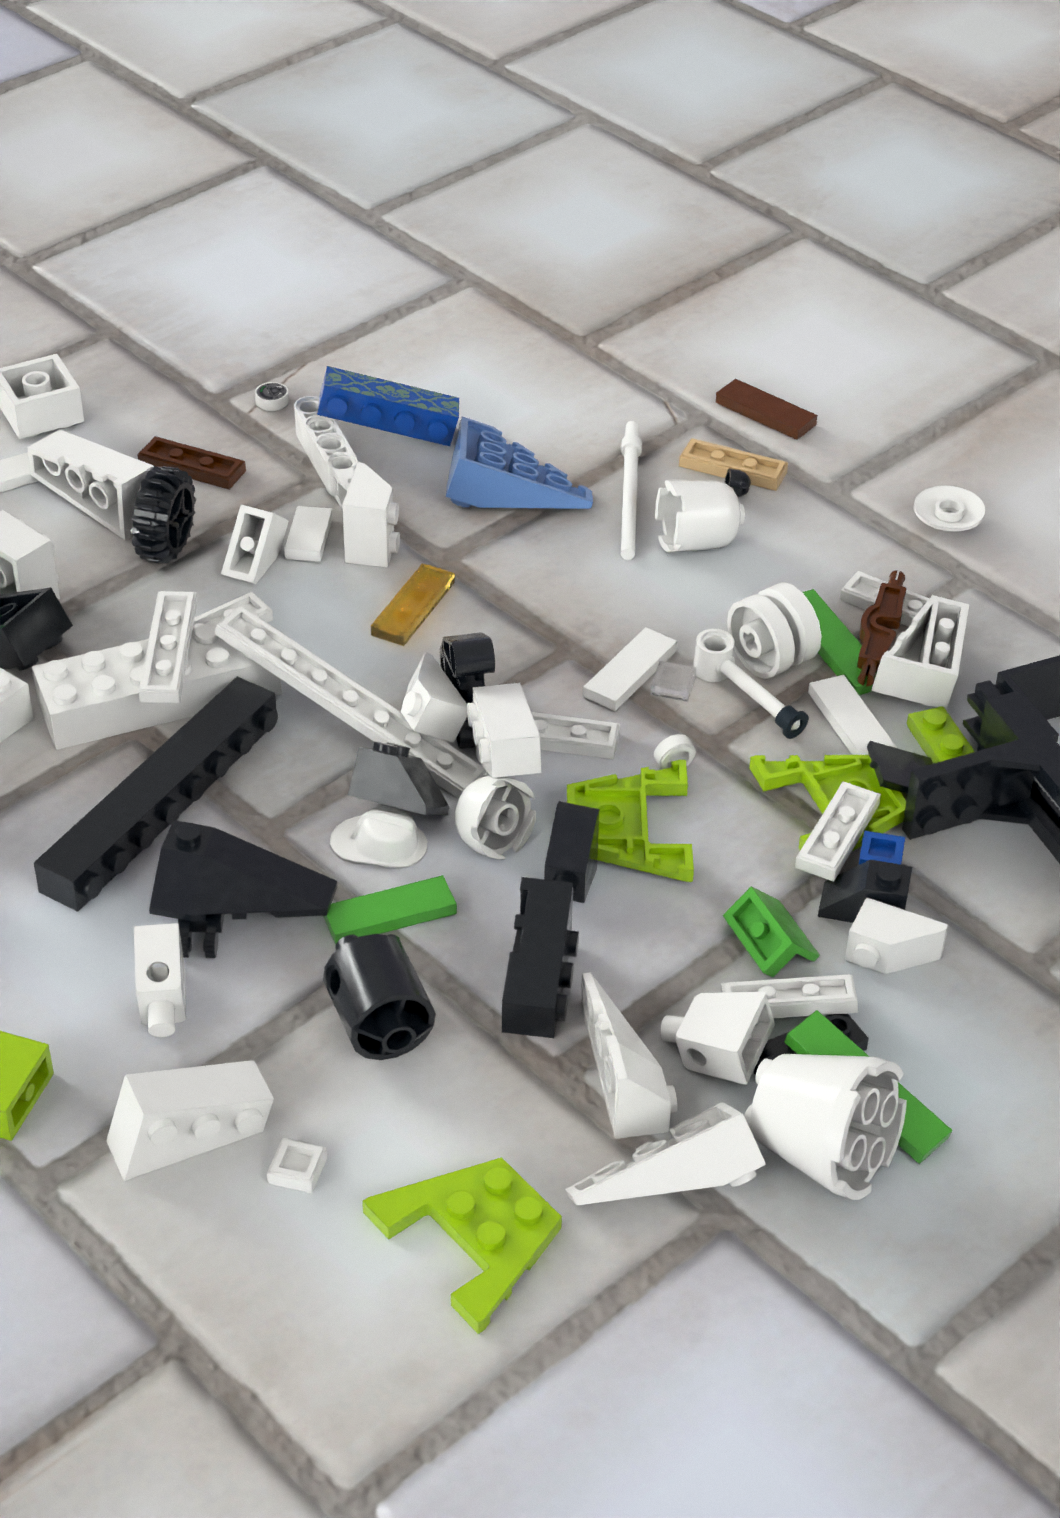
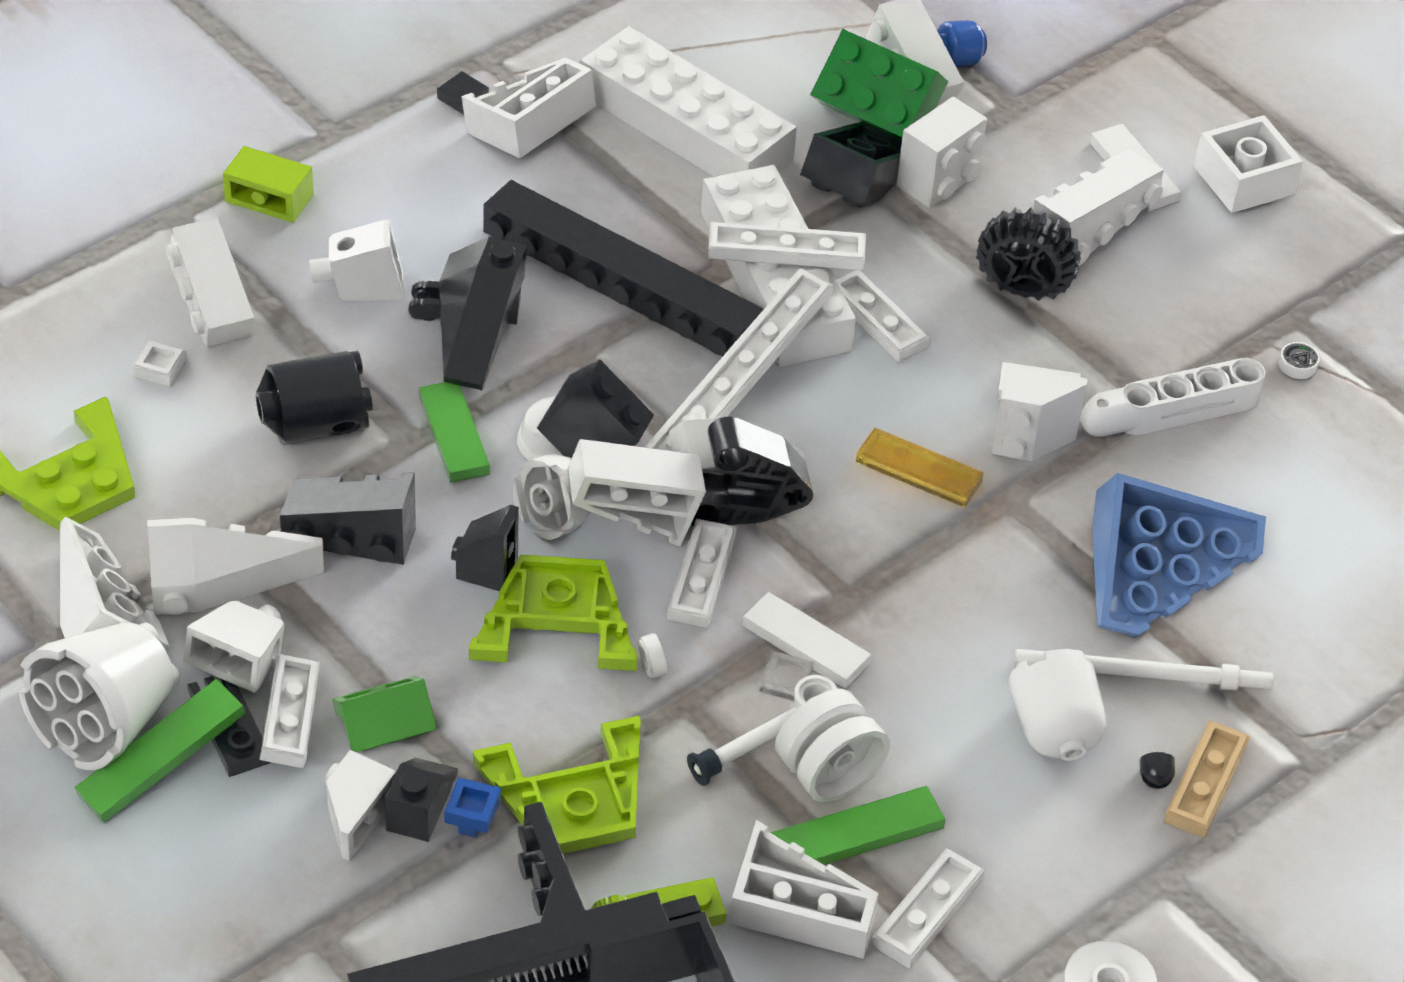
camera: 90 degrees right, 5 degrees up
(197, 462) = (1163, 297): reddish brown tile -> none
(254, 544) = (1006, 335): white slope -> none
(388, 406) = (1249, 434): blue brick -> none
(766, 409) = (1333, 826): reddish brown tile -> none
(837, 831) = (508, 768): white tile -> none
(848, 714) = (710, 828): white tile -> none
(877, 626) = (886, 874): reddish brown piece -> none
(894, 765) = (610, 854): black piece -> none

